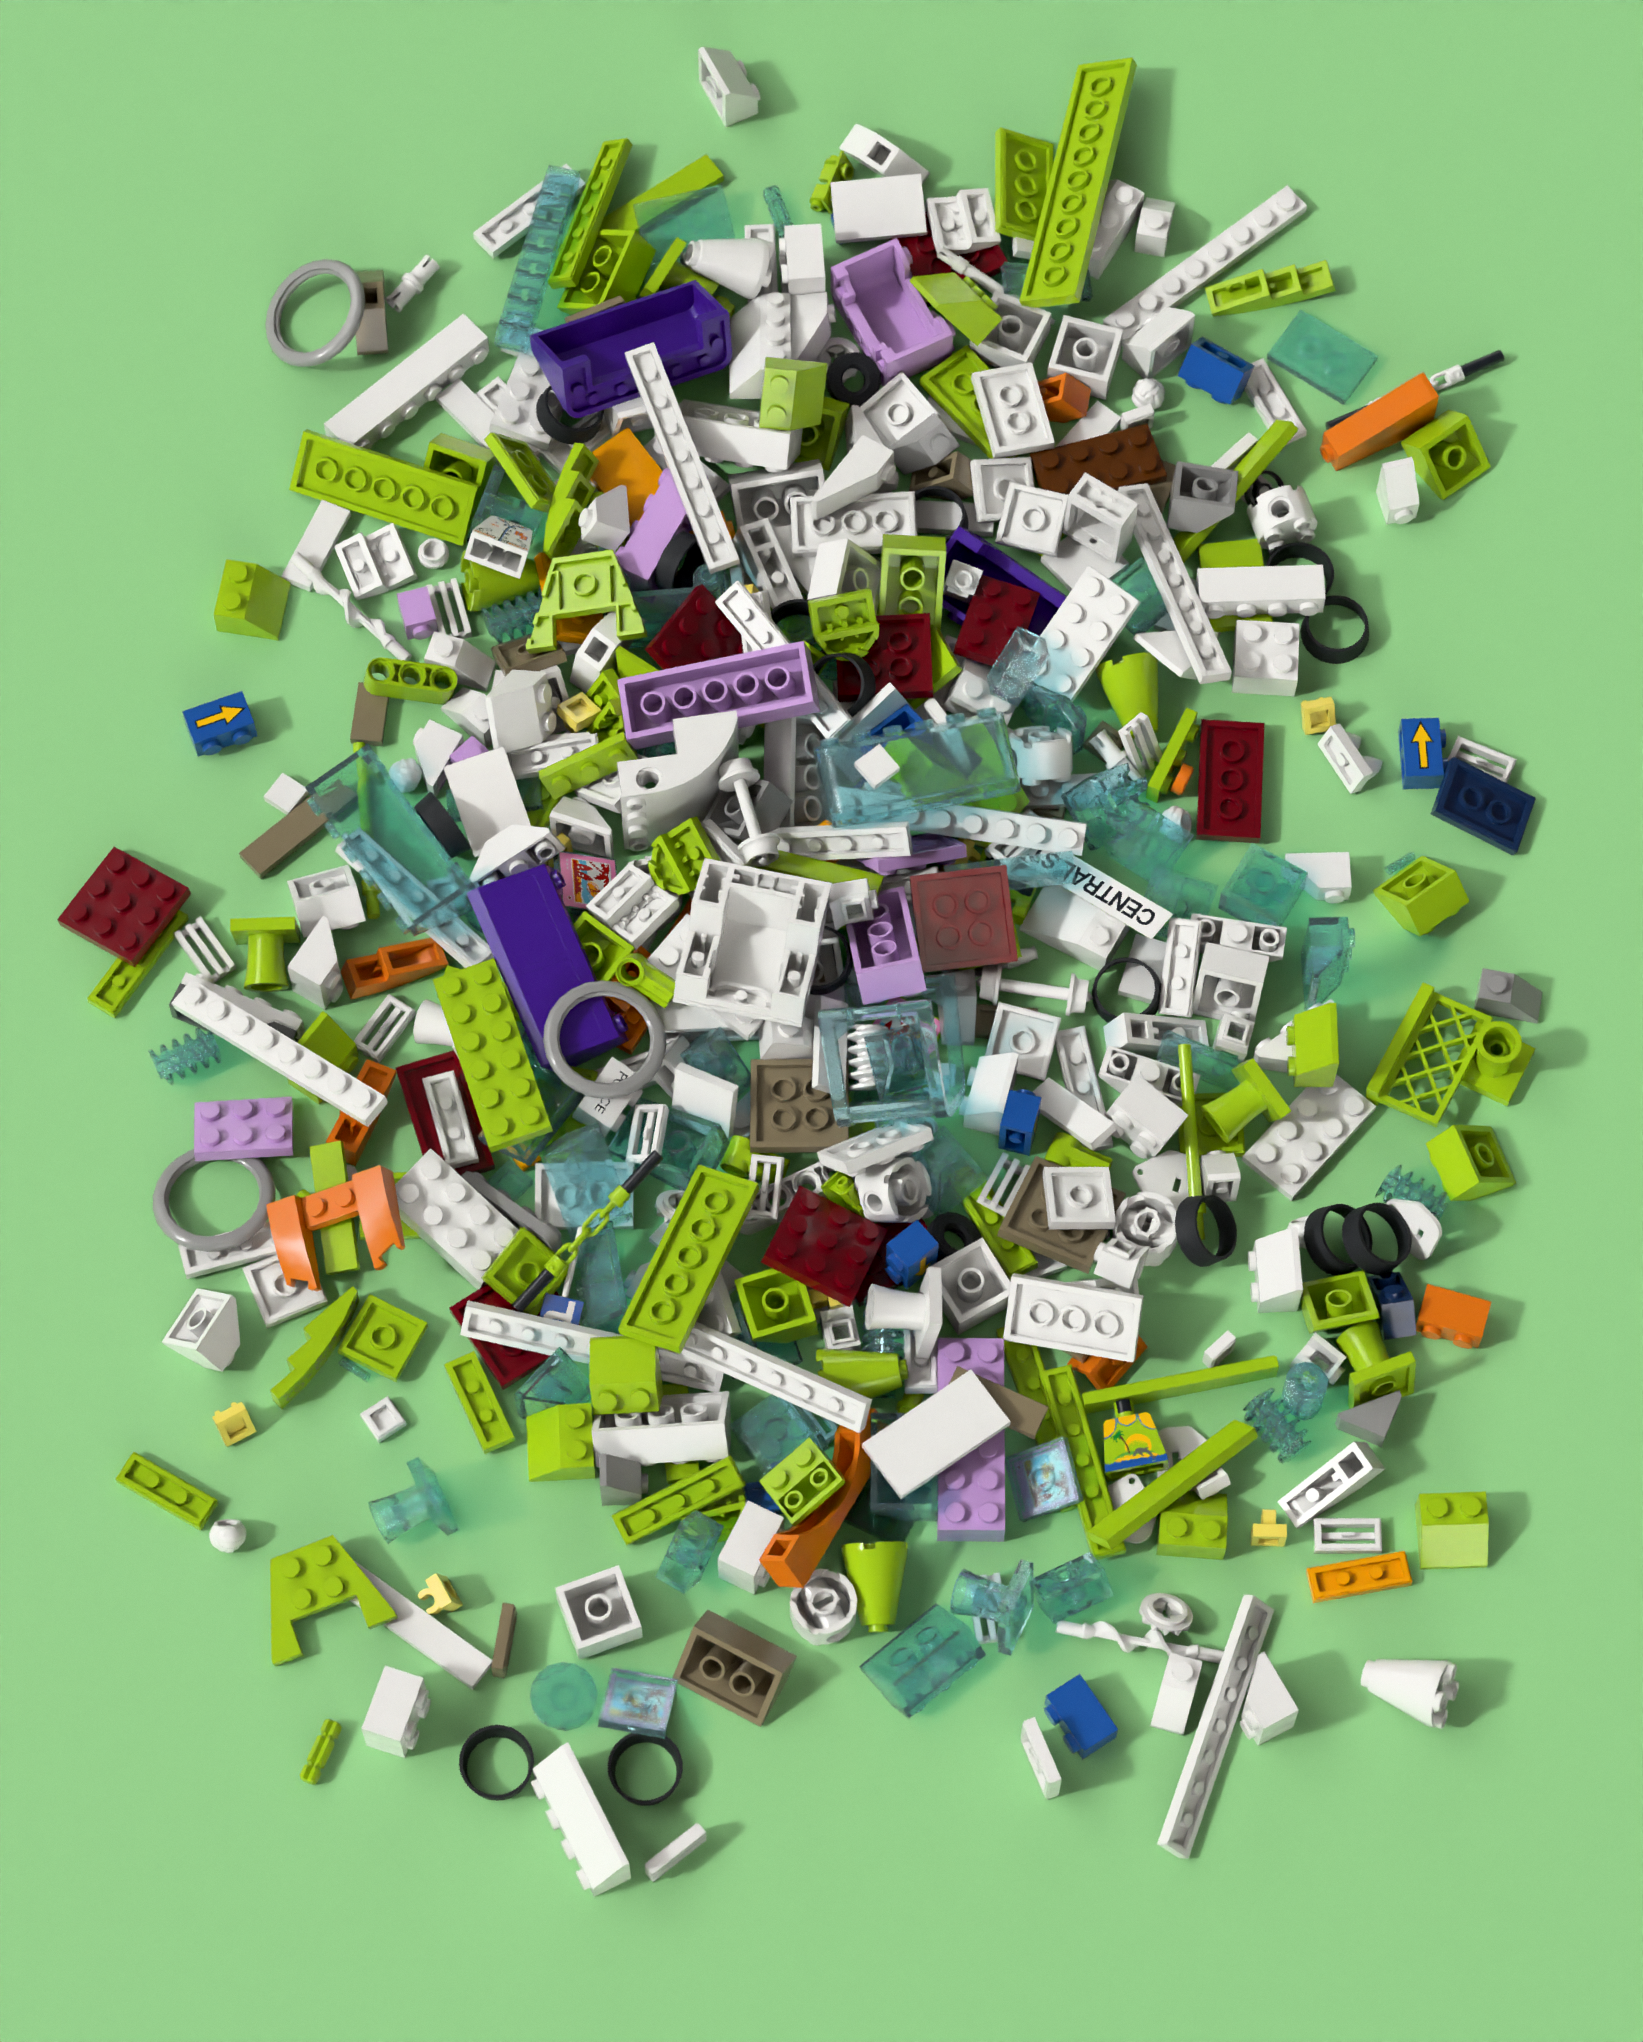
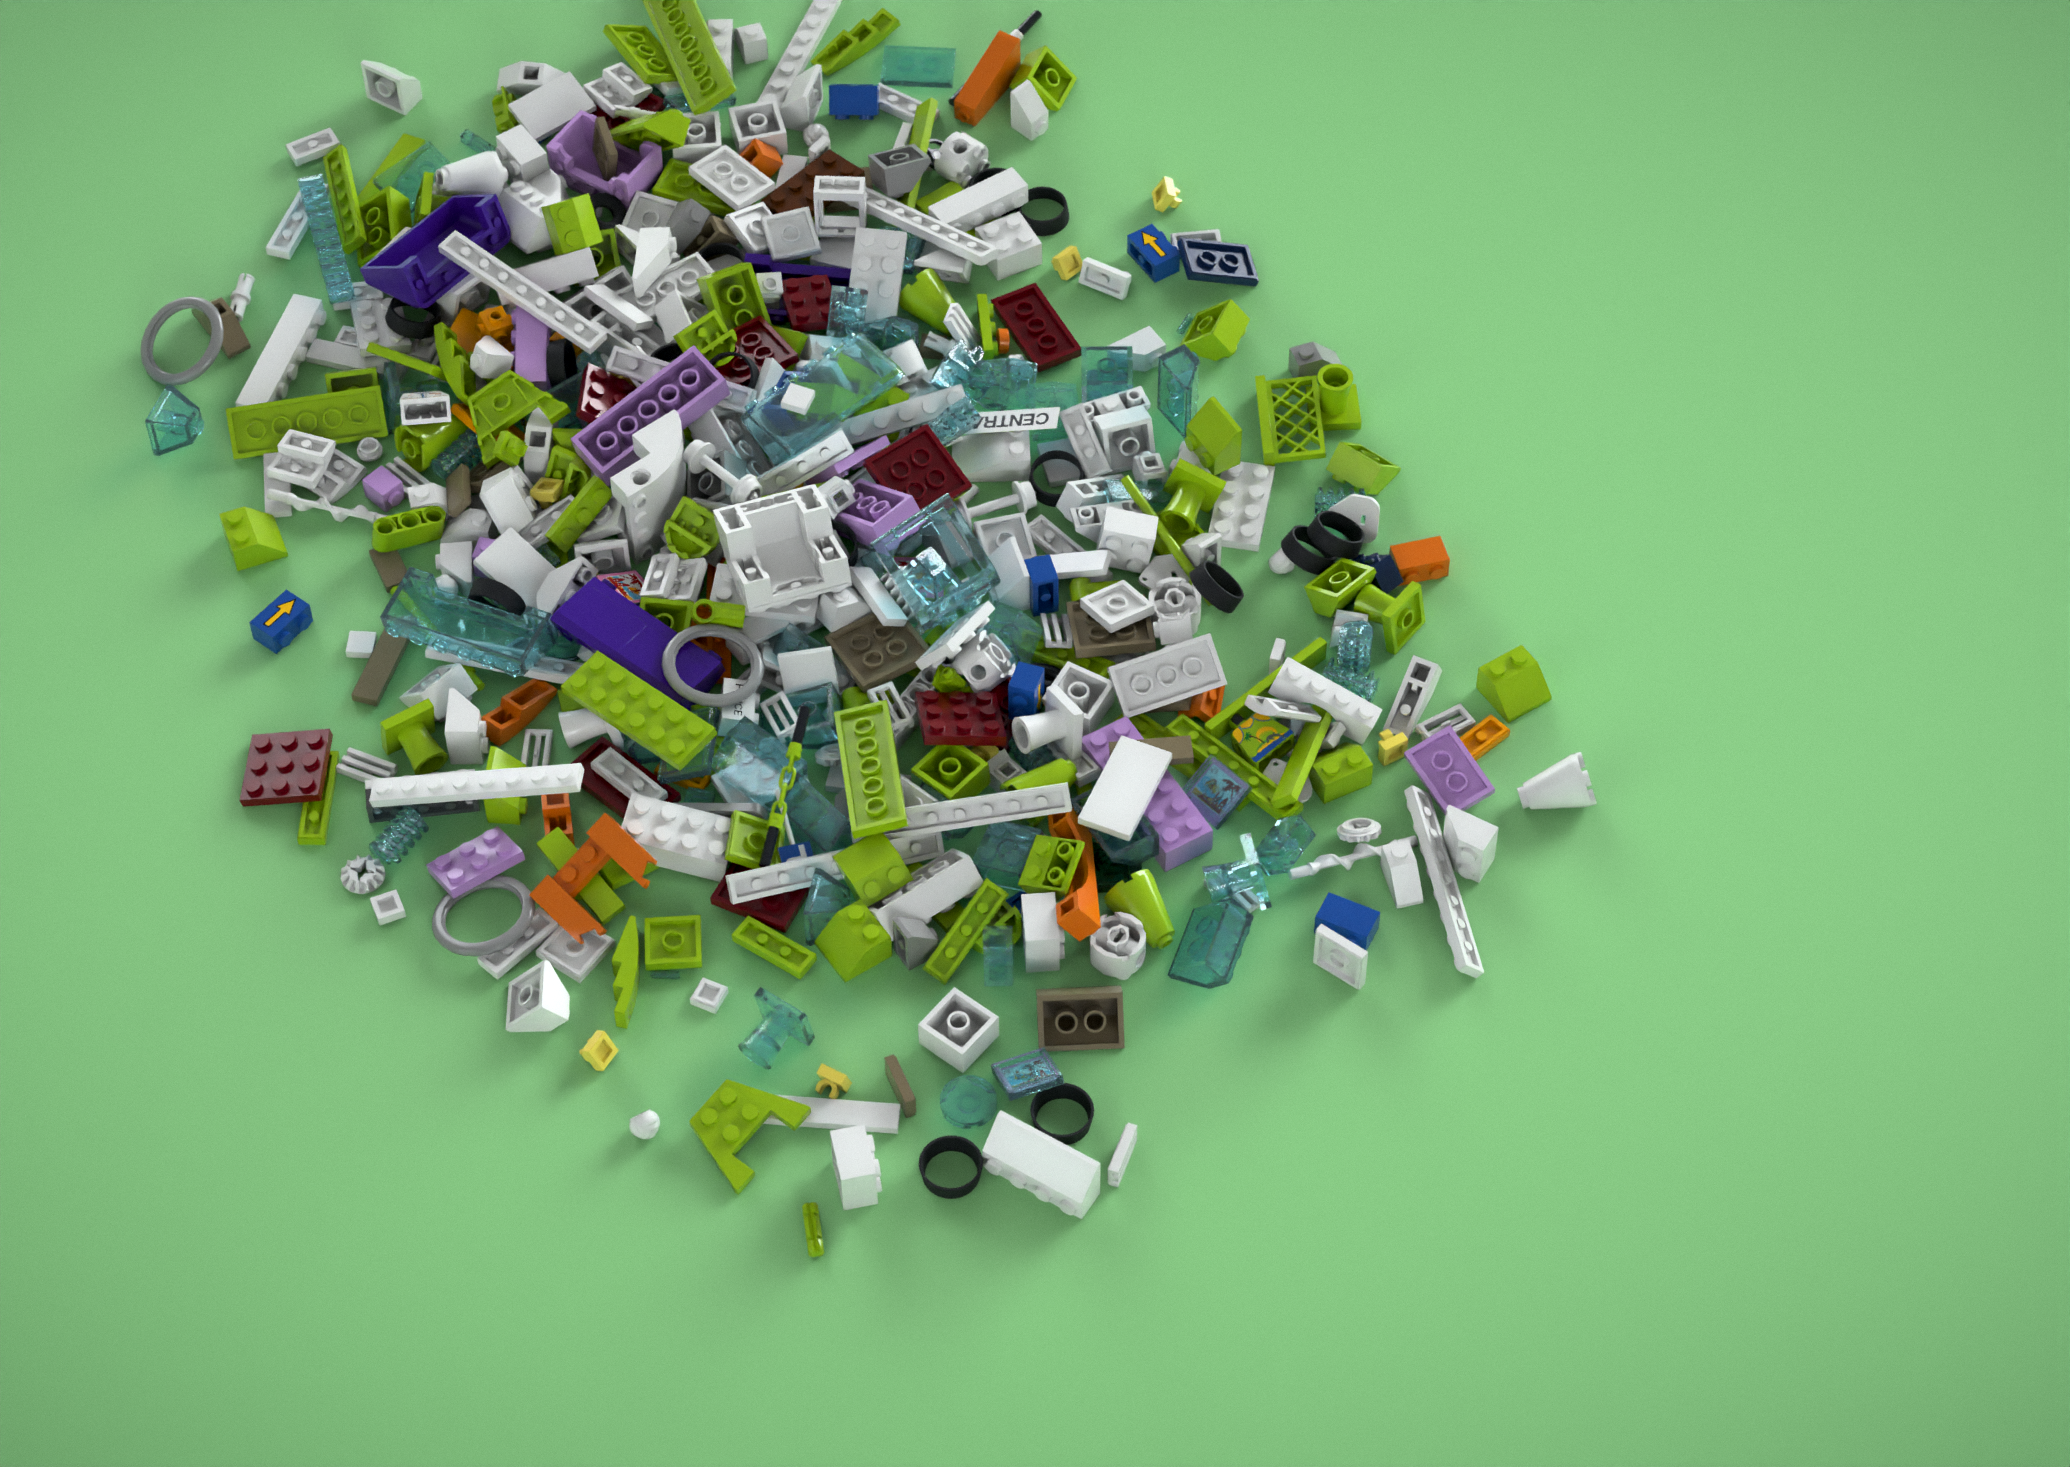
camera: 30 degrees left, 15 degrees down
(127, 1090) = (369, 881): none -> white gear
(127, 1132) = (387, 907): none -> white plate
(167, 1491) = (576, 1122): lime tile -> none
(248, 413) = (173, 422): none -> clear light blue slope
(352, 531) = (301, 459): none -> white slope
(486, 663) = (458, 490): none -> dark tan tile
(559, 646) = (509, 448): none -> lime tile
(600, 122) = (312, 146): none -> white plate
(632, 472) = (495, 324): none -> light orange brick
(782, 523) = (618, 307): none -> white tile
(895, 303) = (604, 149): none -> dark tan tile
(1173, 1424) = (1282, 709): none -> white slope
(1243, 1461) = (1304, 685): none -> white arch
(1277, 1272) = (1284, 588): white slope -> none
(1306, 1600) = (1449, 771): none -> lavender plate
(1371, 1419) = (1410, 643): light grey slope -> none
(1483, 682) = (1165, 195): none -> light yellow tile

